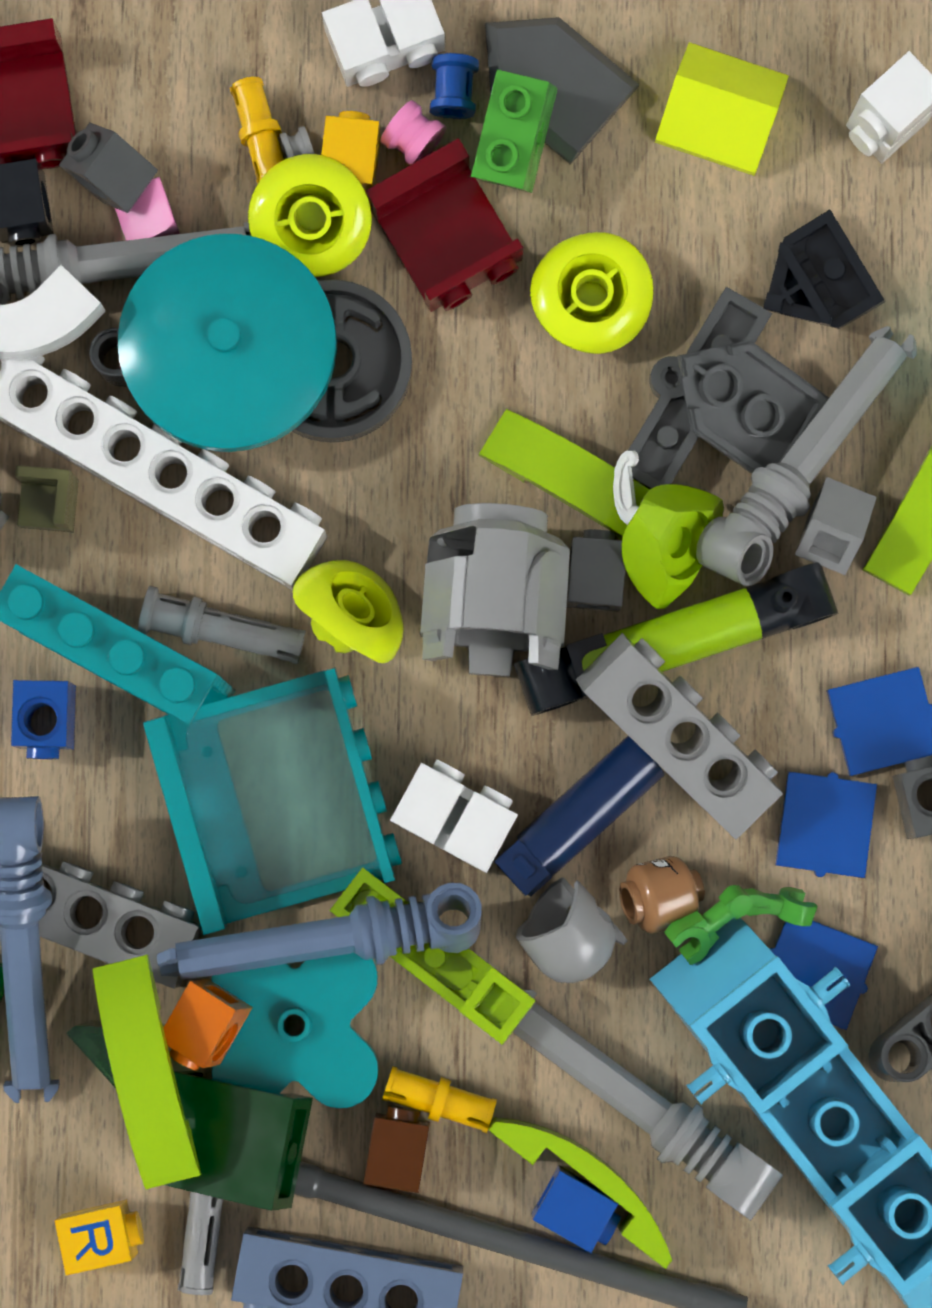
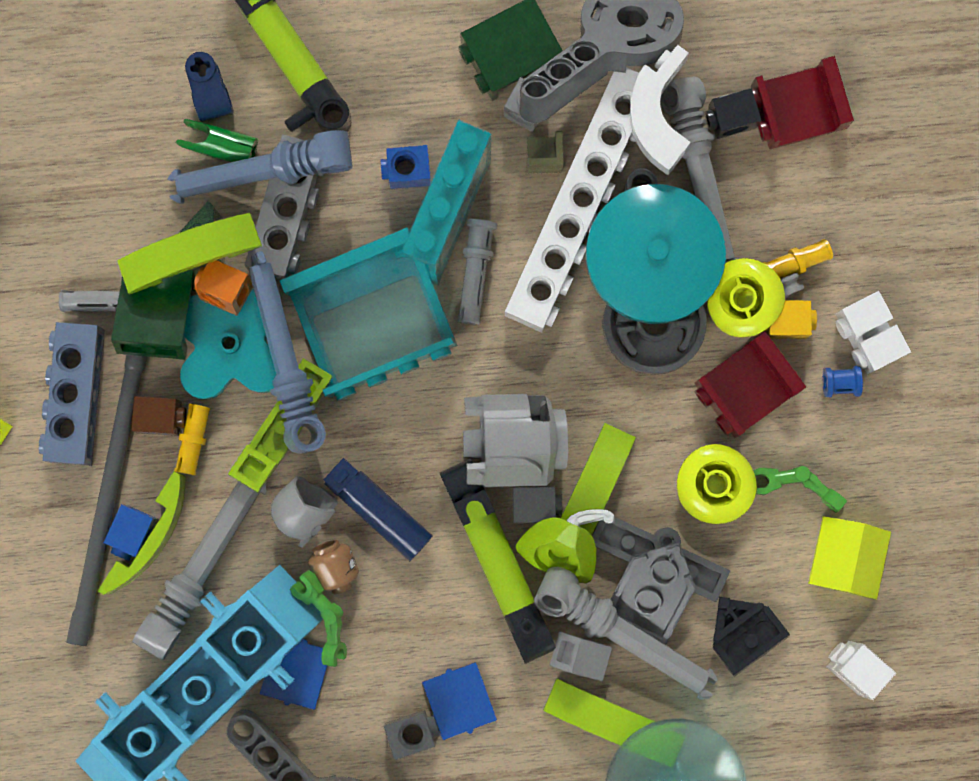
camera: 80 degrees right, 0 degrees up
(98, 1236) = (89, 237): yellow brick -> none
(108, 167) = (762, 166): dark grey brick -> none
(149, 215) = (736, 195): bright pink slope -> none
(351, 609) = (495, 351): neon yellow hat -> none
(412, 133) = (807, 358): bright pink wheel -> none
(454, 816) = (370, 430): white piece -> none
(514, 131) = (815, 422): bright green brick -> none
(587, 81) = (854, 447): dark grey tile -> none
(589, 163) = (801, 474): none -> bright green piece
(731, 801) = (396, 604): light grey brick -> none
(826, 824) = (389, 669): blue piece -> none

